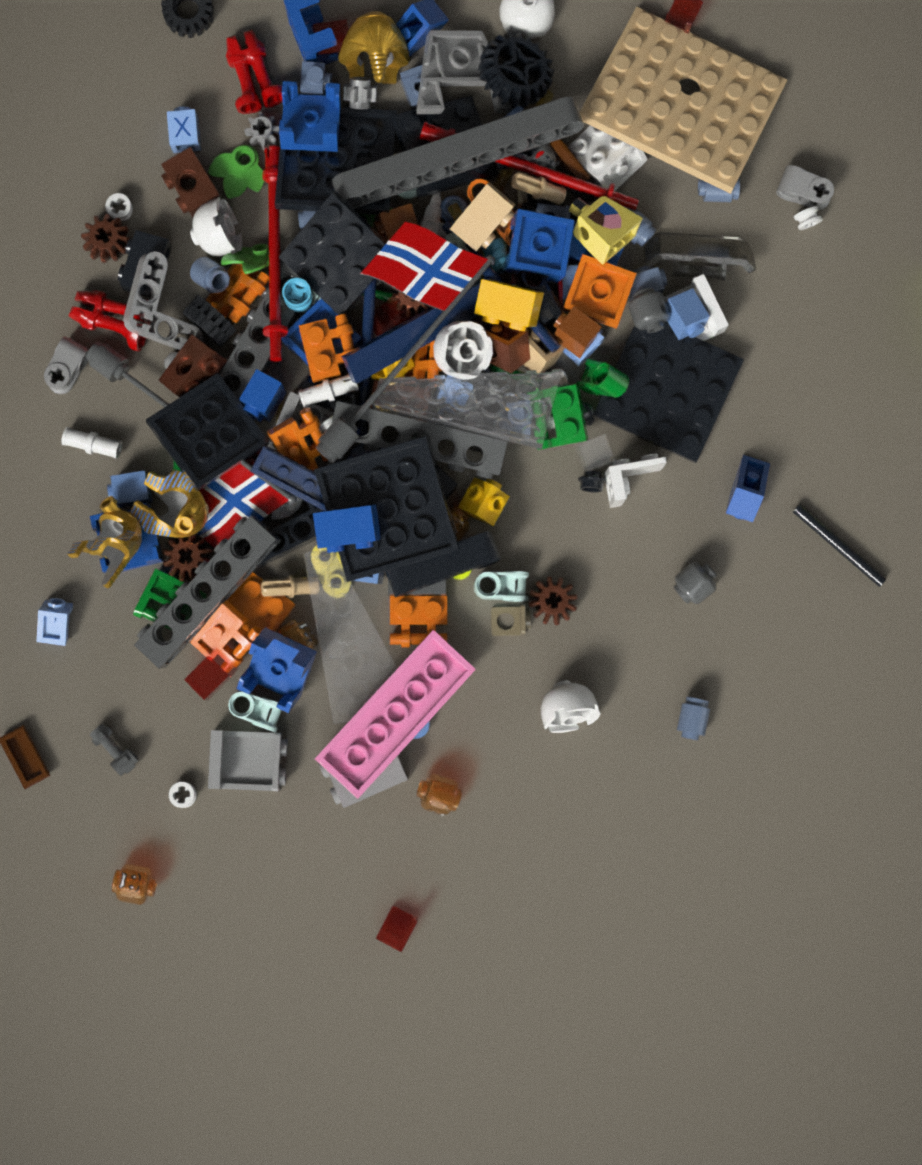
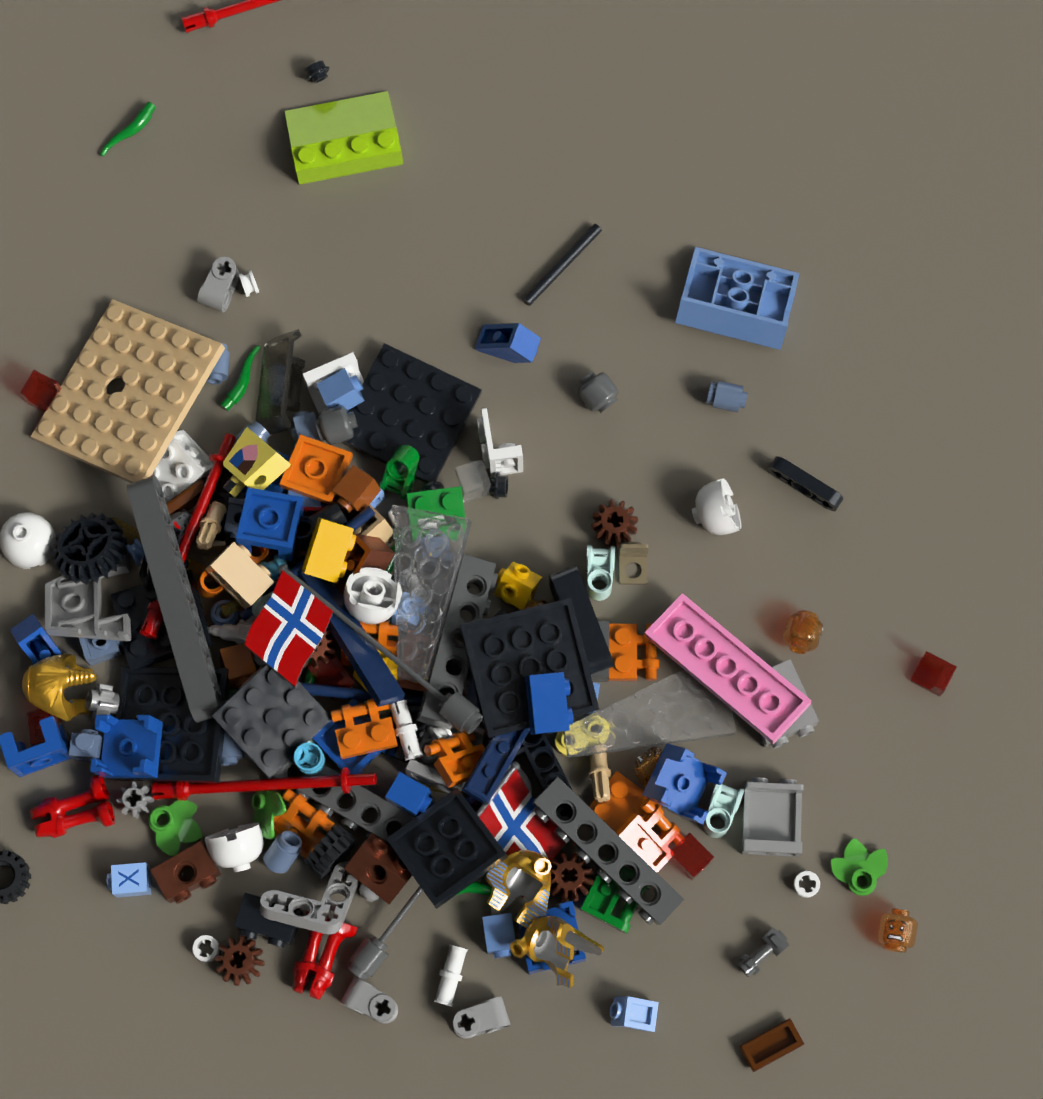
camera: 85 degrees left, 10 degrees down
(51, 477) = (487, 1018): none -> light grey piece
(203, 847) = (859, 863): none -> bright green plate
(599, 800) = (805, 483): none -> black beam
(692, 214) = (241, 386): none -> green animal
(805, 730) = (737, 298): none -> medium blue piece

